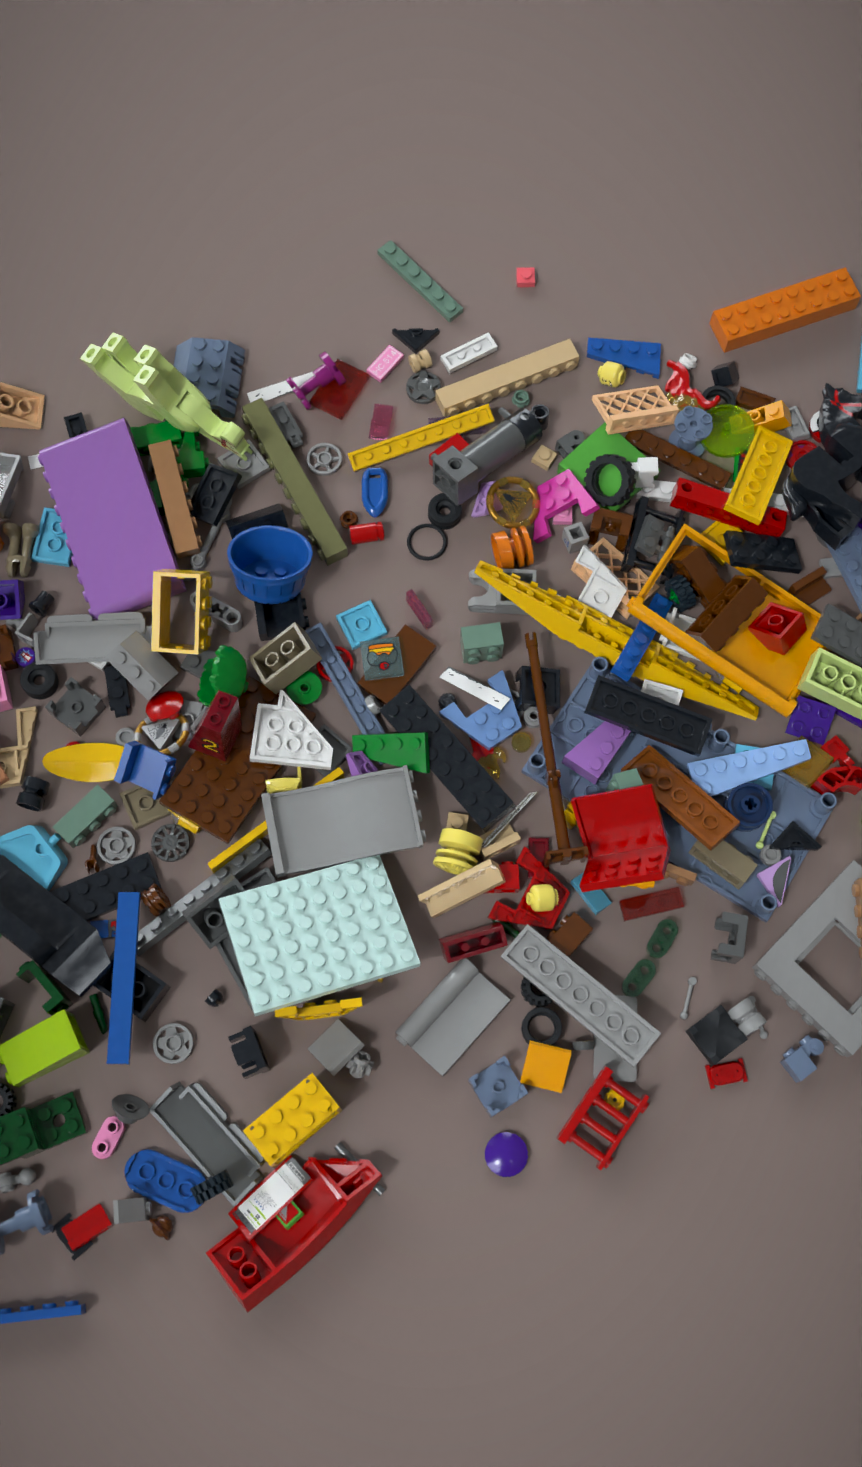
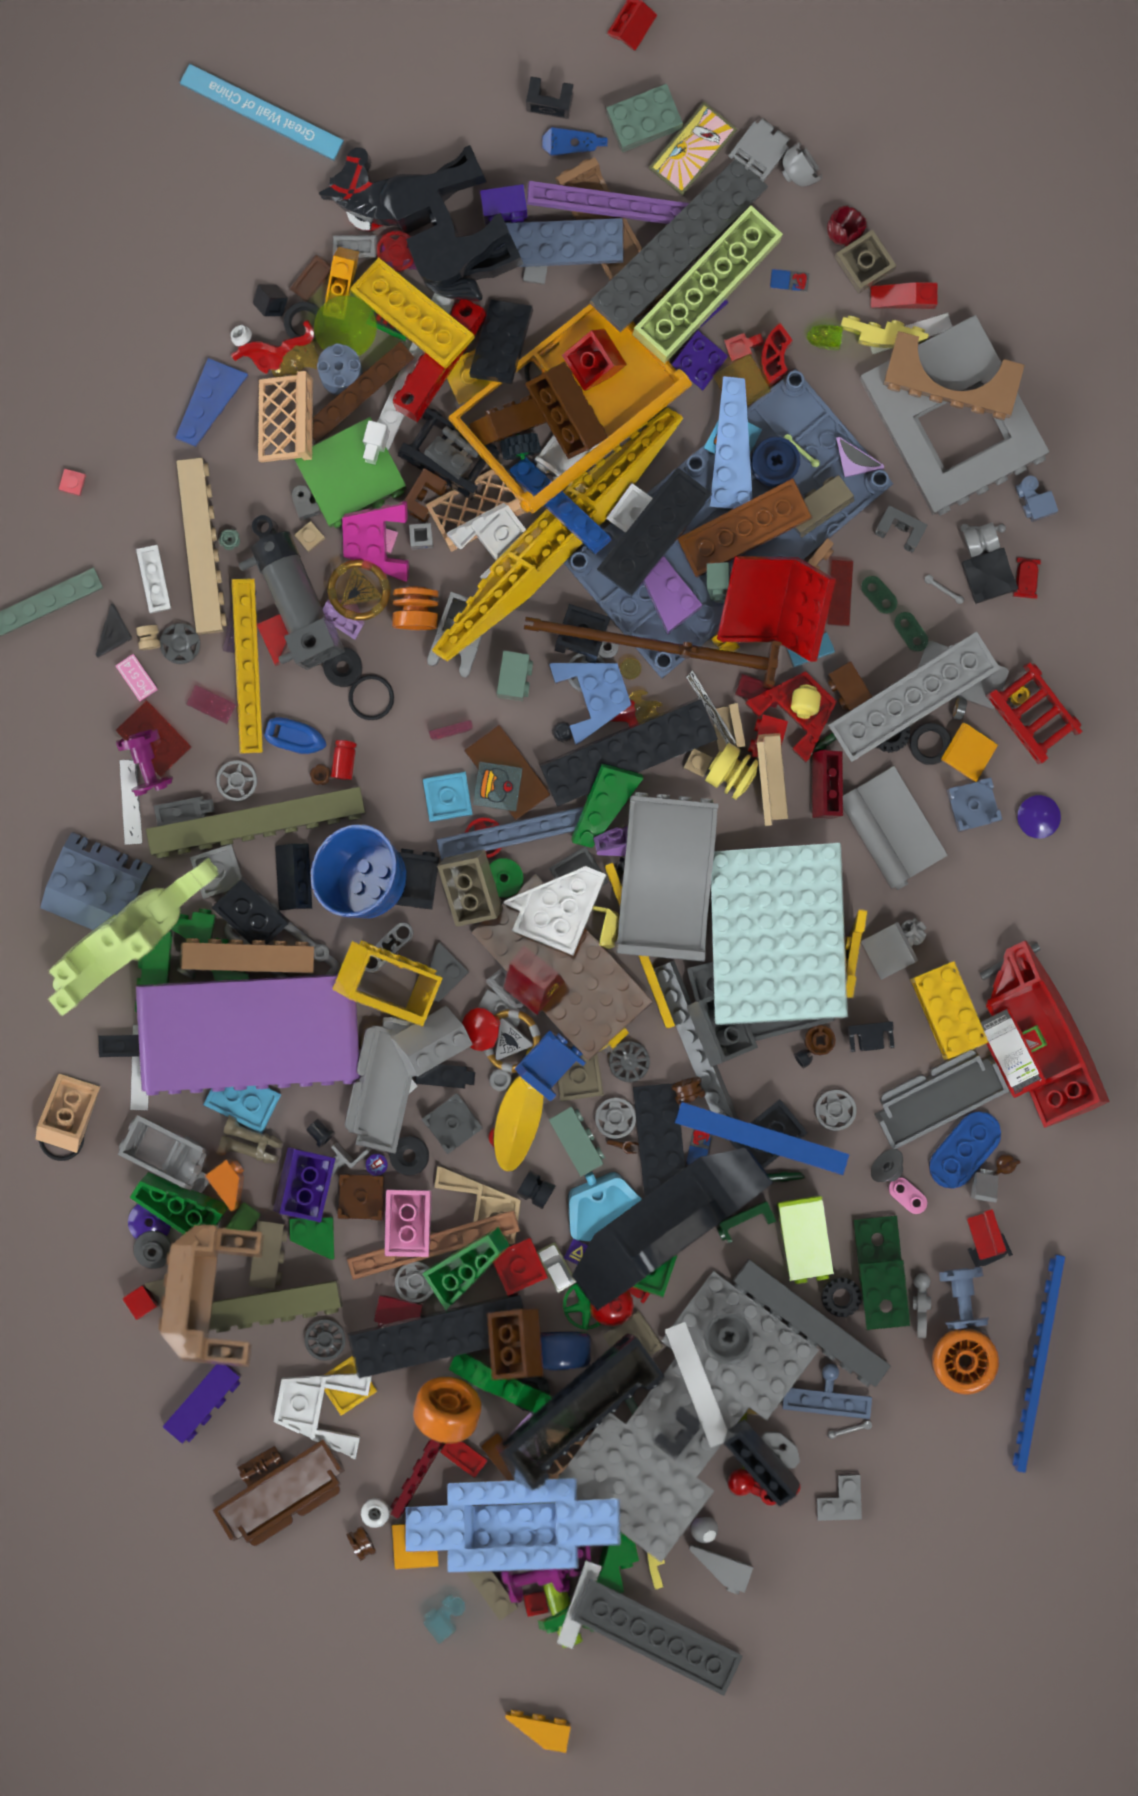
camera: 70 degrees left, 15 degrees up
(212, 1187) = (987, 1104): black wheel -> none
(223, 673) = (475, 959): green animal -> none
(234, 1008) = (820, 1040): none -> reddish brown wheel
(373, 704) = (544, 810): light grey tile -> none
(475, 688) = (559, 698): white sticker -> none
(612, 374) = (232, 427): light yellow head -> none
(627, 481) = (370, 462): black tyre -> none
(769, 856) = (828, 456): light grey tile -> none
(784, 309) = (210, 203): orange brick -> none
(795, 839) = (820, 426): black tile -> none
(811, 587) = (553, 303): reddish brown panel -> none

